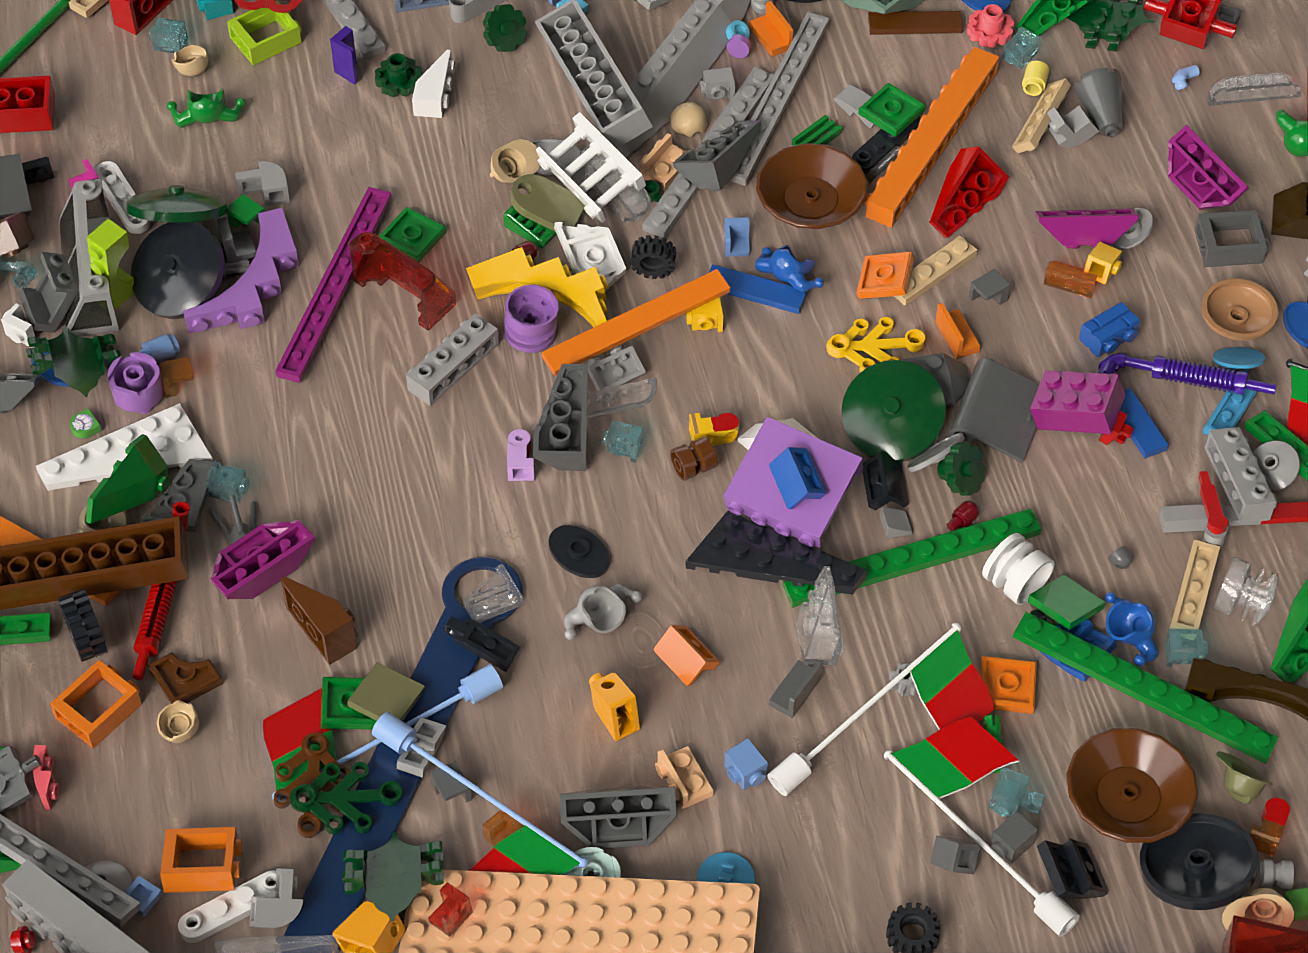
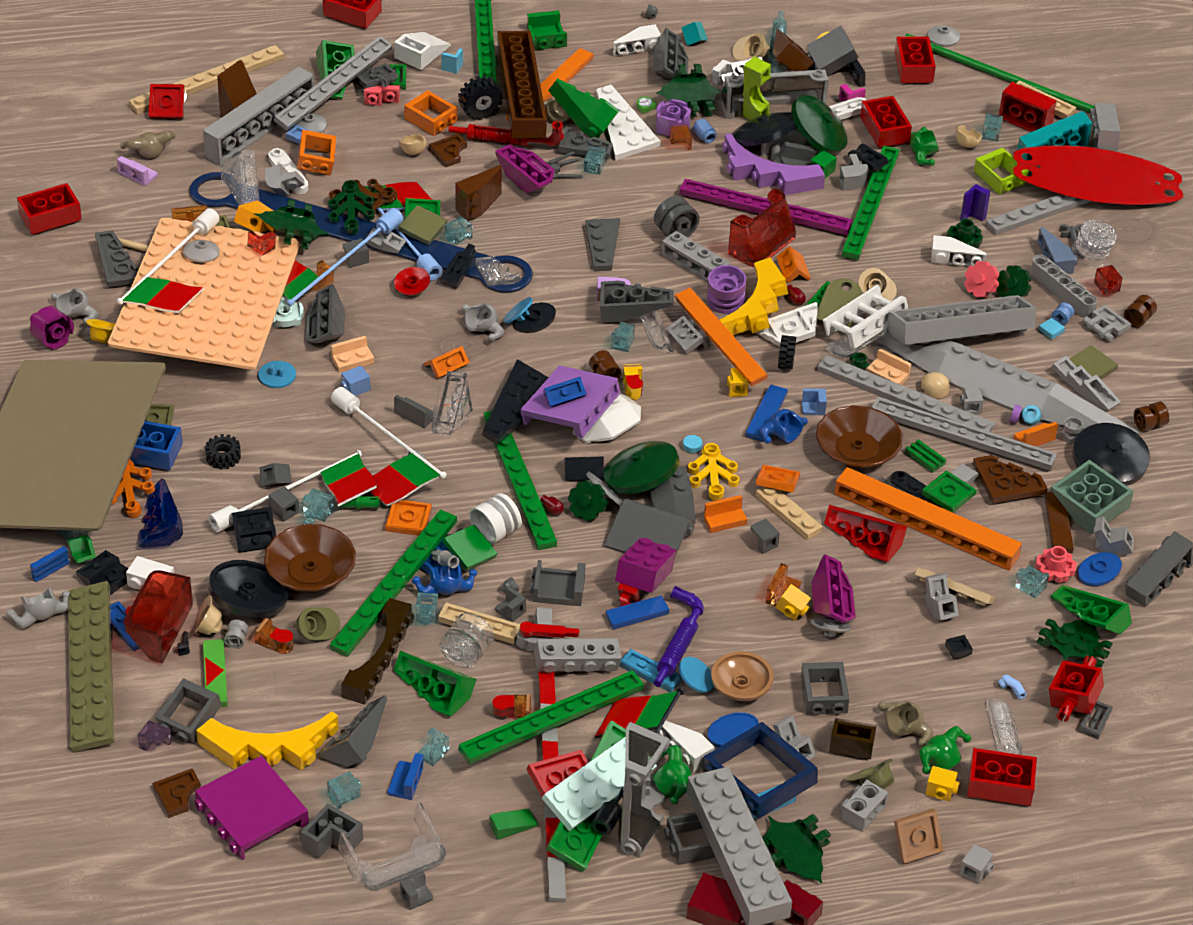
camera: 90 degrees right, 10 degrees down
(157, 141) = (885, 121): none -> red brick
(240, 159) = (870, 157): none -> black plate
(326, 168) = (869, 206): none -> green plate
(381, 373) = (676, 215): none -> dark grey wheel
(396, 649) = (458, 230): none -> clear light blue brick
(406, 473) = (602, 240): none -> dark grey wing
(413, 233) = (814, 244): green tile -> none
(460, 255) = (792, 264): none -> orange panel
(497, 57) = (981, 279): none -> coral plant
(516, 692) = (412, 281): none -> red dish
(582, 562) = (518, 310): none -> dark azure piece
(612, 693) = (405, 320): light orange torso -> none
(718, 158) = (879, 384): dark grey wedge -> none
(823, 367) = (692, 444): none -> medium azure tile
(854, 61) = (1007, 481): none -> reddish brown plate
(894, 522) = (549, 468): light grey slope -> none
(1035, 78) = (998, 586): light yellow brick -> none
(1102, 99) = (969, 620): dark grey cone -> none
(1103, 623) = (445, 558): none -> light grey axle
(1108, 502) = (558, 585): none -> dark grey panel
(1109, 330) = (726, 602): blue brick -> none
(1137, 118) = (959, 646): none -> black plate
(1157, 554) = (512, 606): none -> dark grey panel
(1201, 172) = (898, 678): magenta wedge -> none
(1266, 165) = (906, 719): none -> dark tan piece
(1286, 464) = (588, 680): light grey dish -> none

